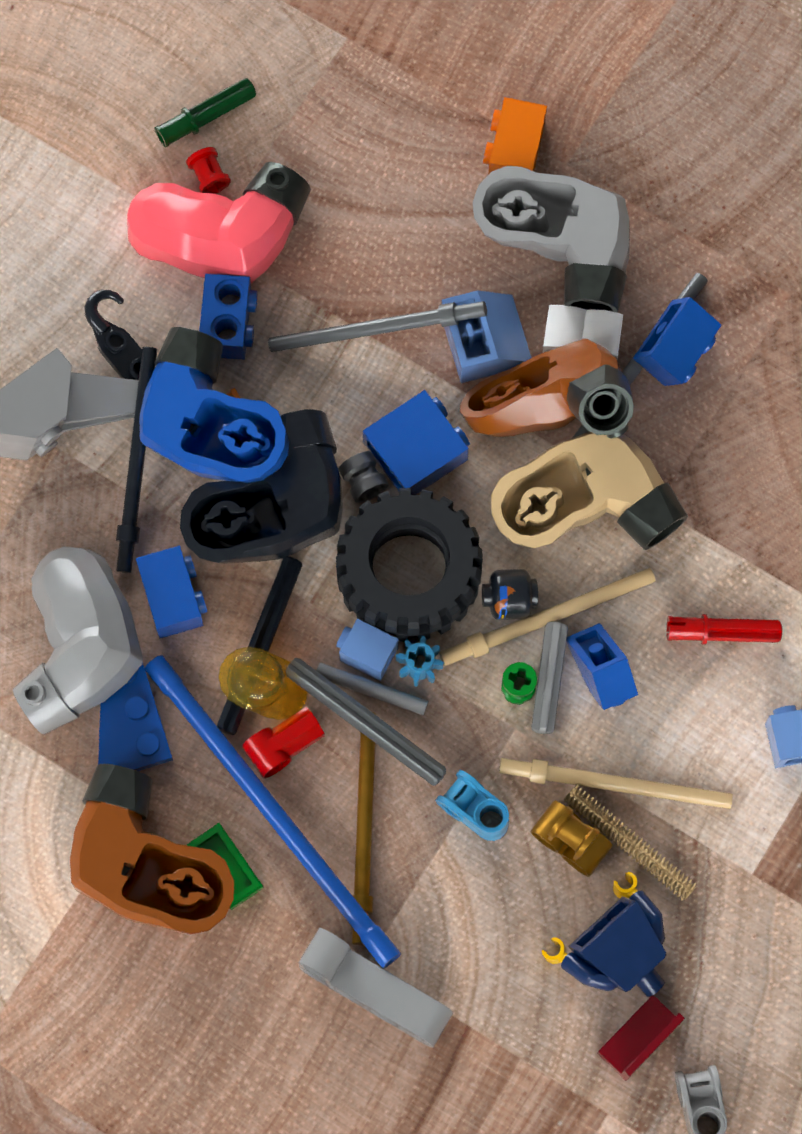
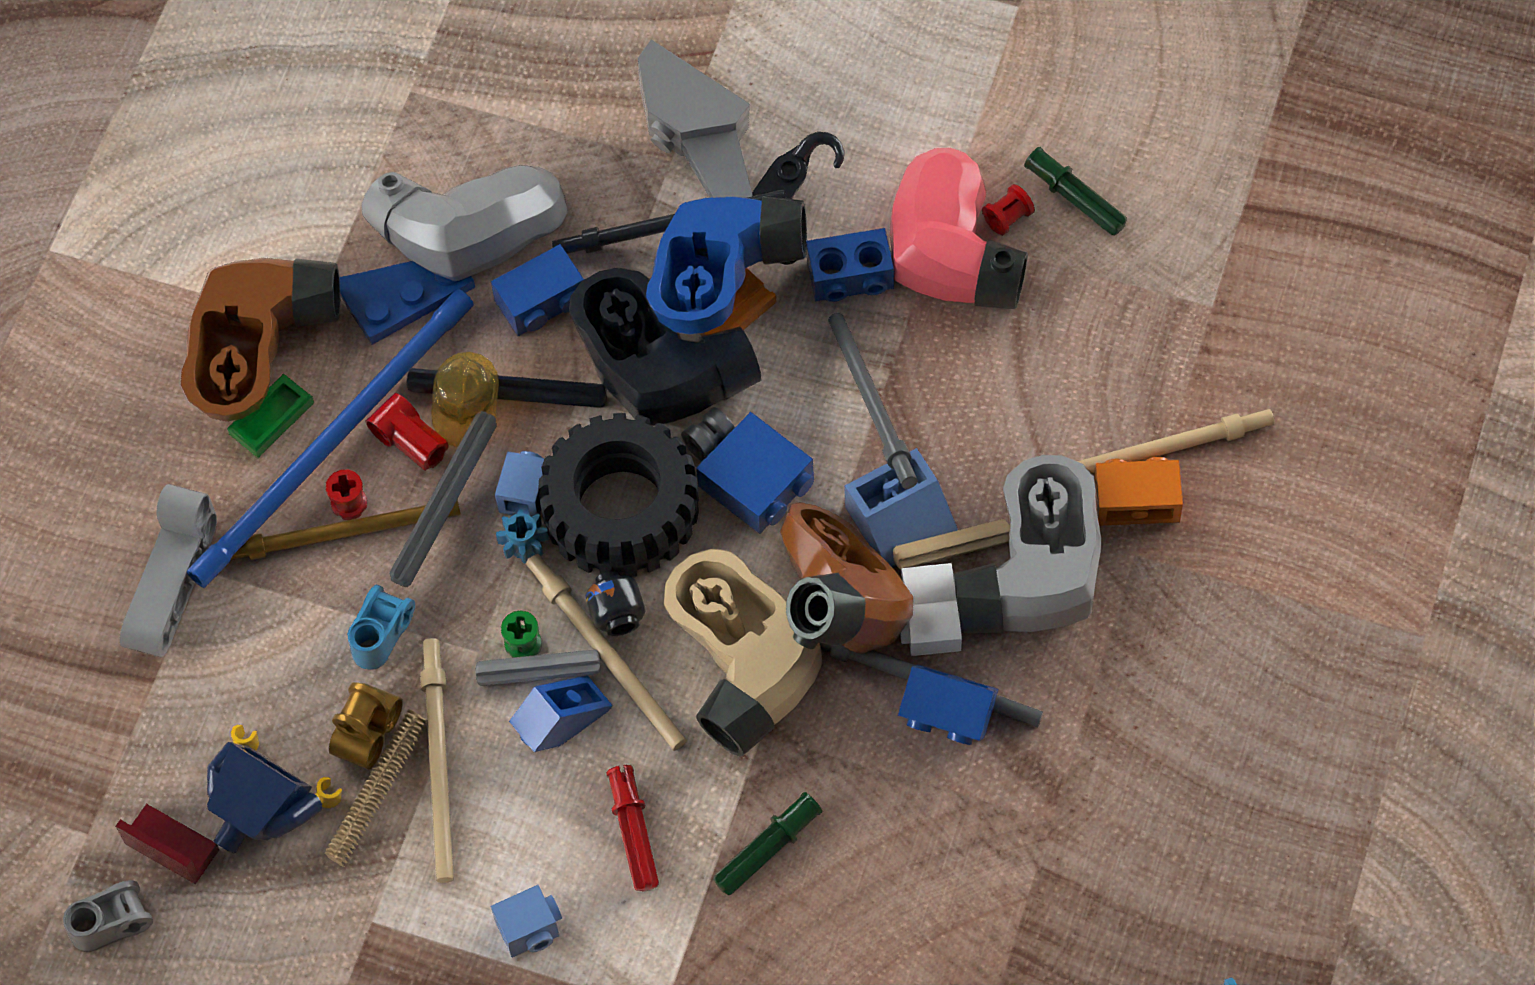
camera: 80 degrees right, 10 degrees down
(344, 815) = (345, 482): none -> red bush
(373, 689) = (486, 503): light grey bar -> none
(473, 55) = (1230, 427): none -> tan bar
(526, 302) = (951, 544): none -> tan axle
(764, 522) = (767, 844): none -> dark green axle

